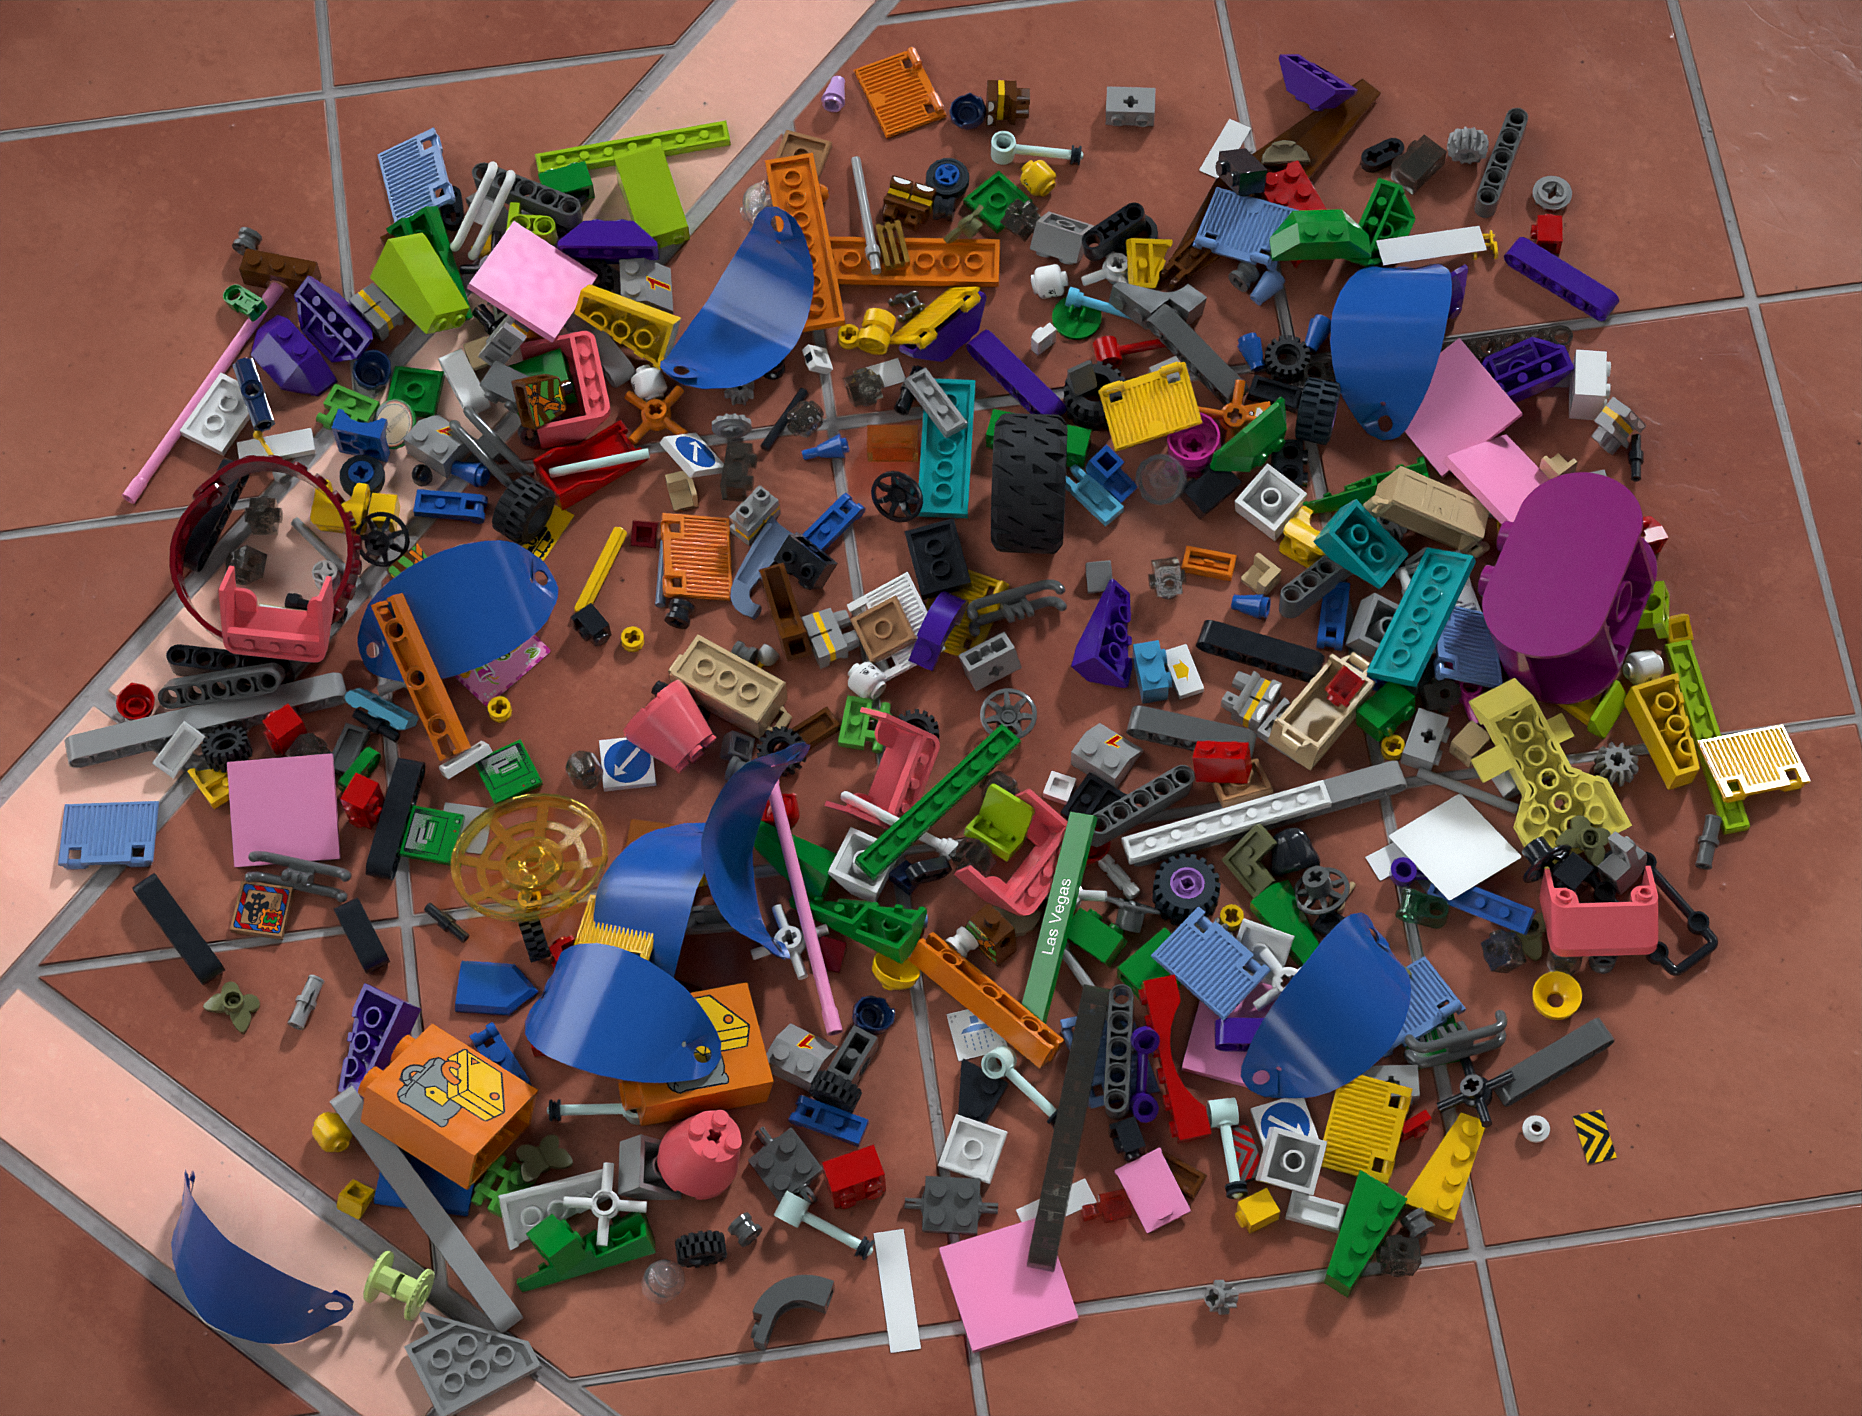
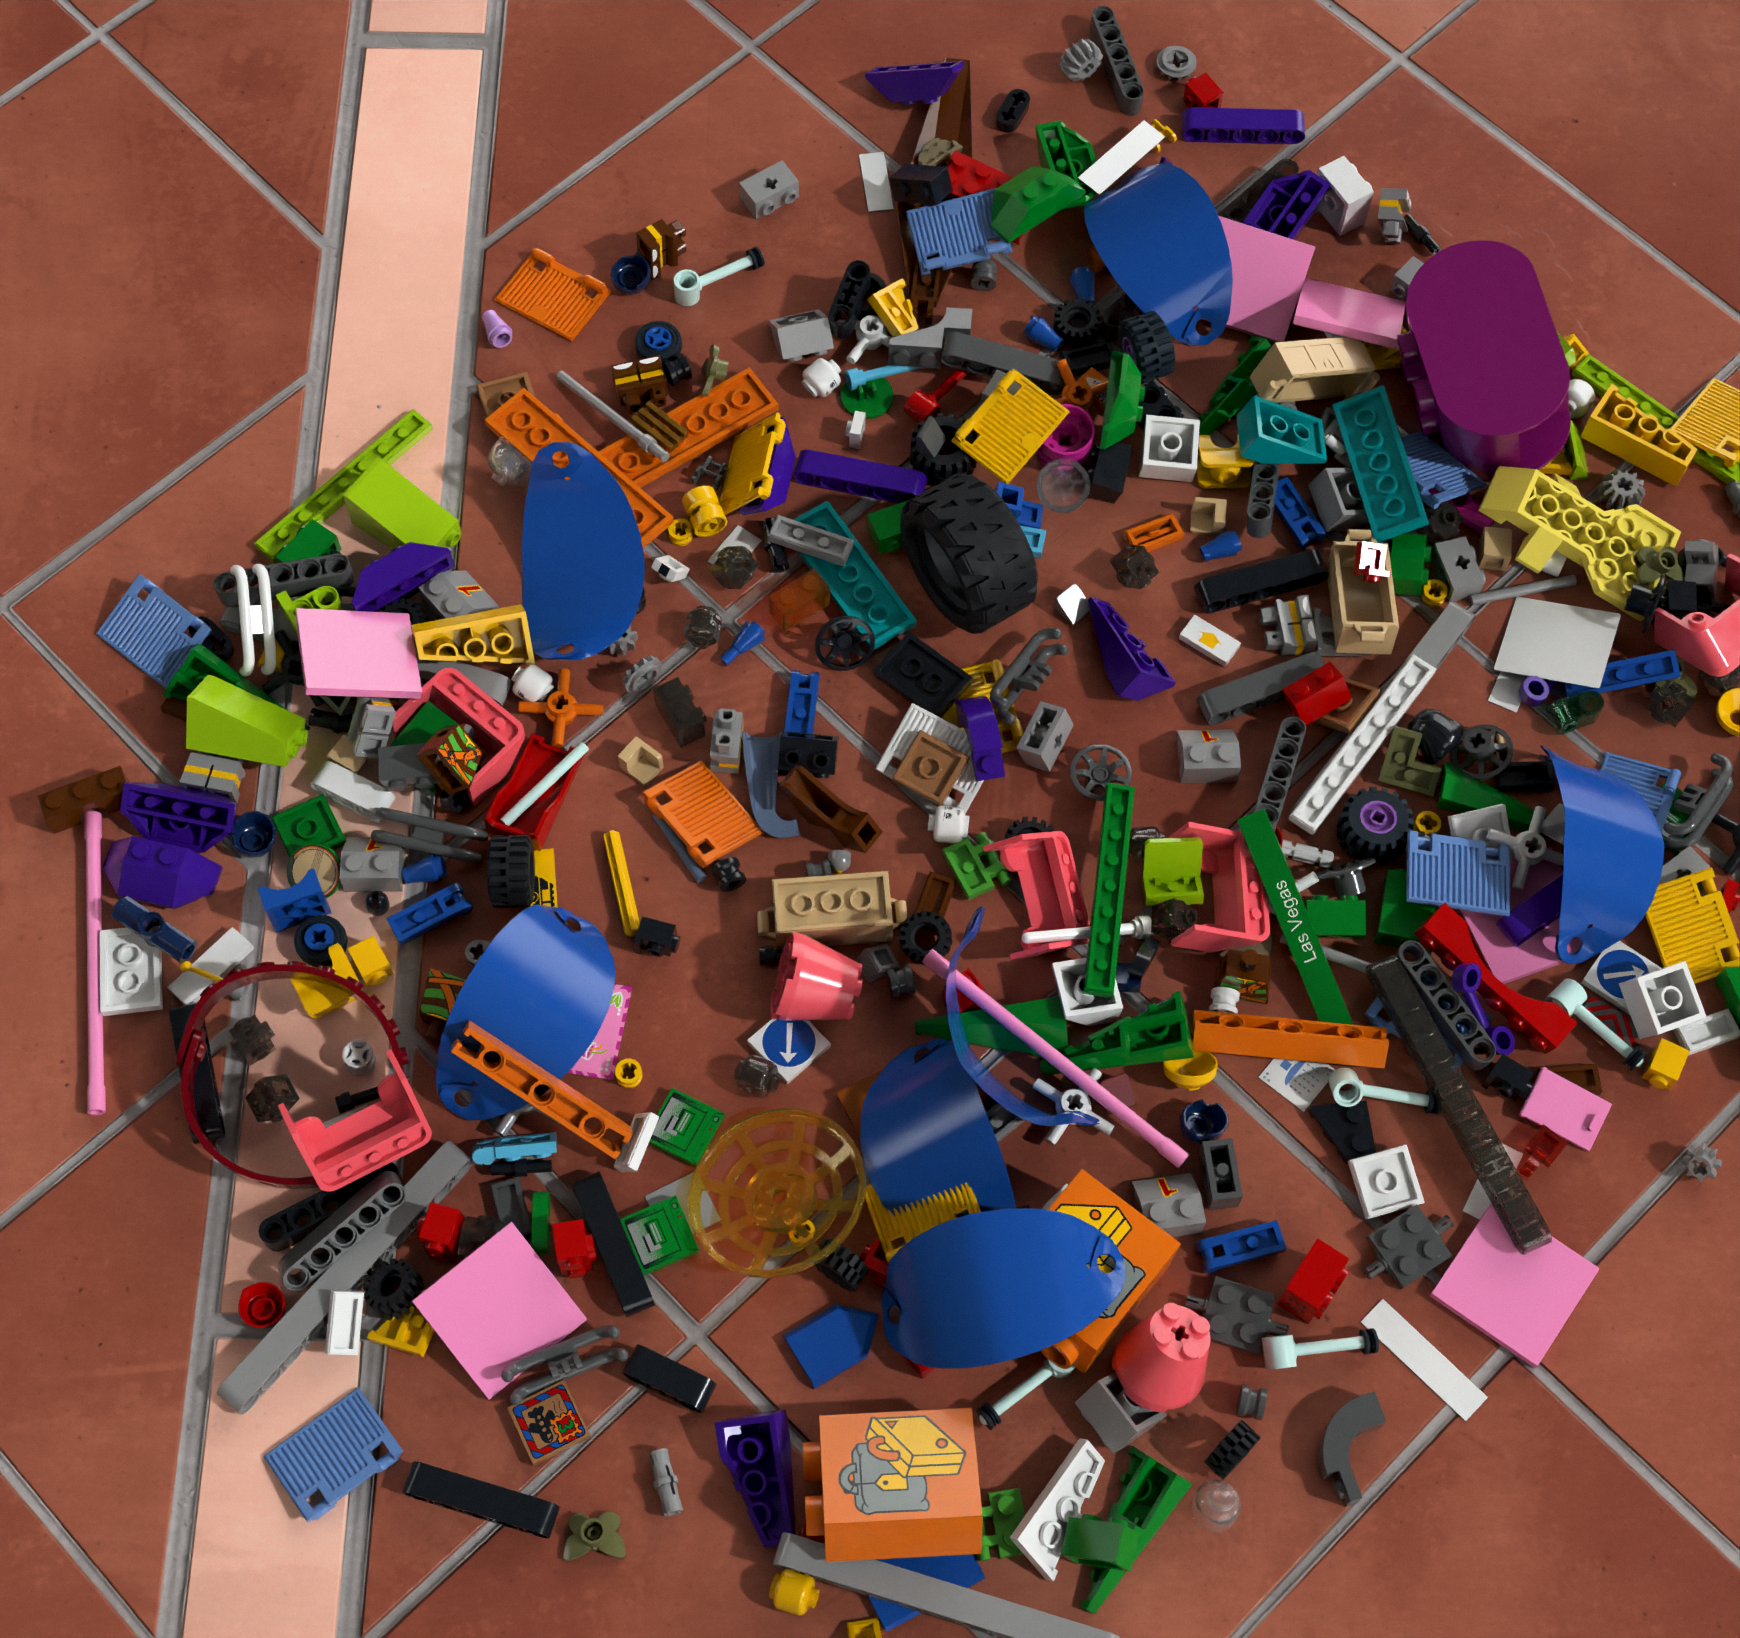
camera: 40 degrees left, 0 degrees up
(246, 303) = (74, 848): green piece -> none
(248, 239) = (27, 790): dark grey wheel -> none
(322, 548) = (336, 1034): light grey bar -> none
(354, 405) = (245, 881): bright green plate -> none
(381, 540) = (391, 987): black wheel -> none
(446, 922) = (740, 1309): black bar -> none
(498, 1052) = (889, 1398): blue plate -> none
(542, 1158) = (1014, 1468): olive animal -> none
(605, 1216) = (1100, 1478): white bar -> none
(628, 633) = (696, 934): yellow bush -> none
(644, 533) = (635, 823): dark red slope -> none
(692, 455) = (627, 722): white tile -> none
(782, 421) = (681, 643): black bar -> none
(826, 637) = (885, 808): light grey hips -> none
(835, 1091) = (1231, 1214): black tyre -> none
(995, 197) = (720, 330): green tile -> none
(1021, 218) = (755, 338): clear smoke brick -> none
(1038, 178) = (738, 295): yellow head -> none
(1059, 787) = (1192, 808): white plate -> none
(1091, 797) = (1231, 799): black wing -> none
(1150, 671) = (1187, 657): dark azure brick -> none
(1268, 285) = (1010, 272): medium blue cone -> none
(1417, 164) = (1052, 97): clear smoke brick -> none
(1557, 466) = (1371, 280): tan panel -> none

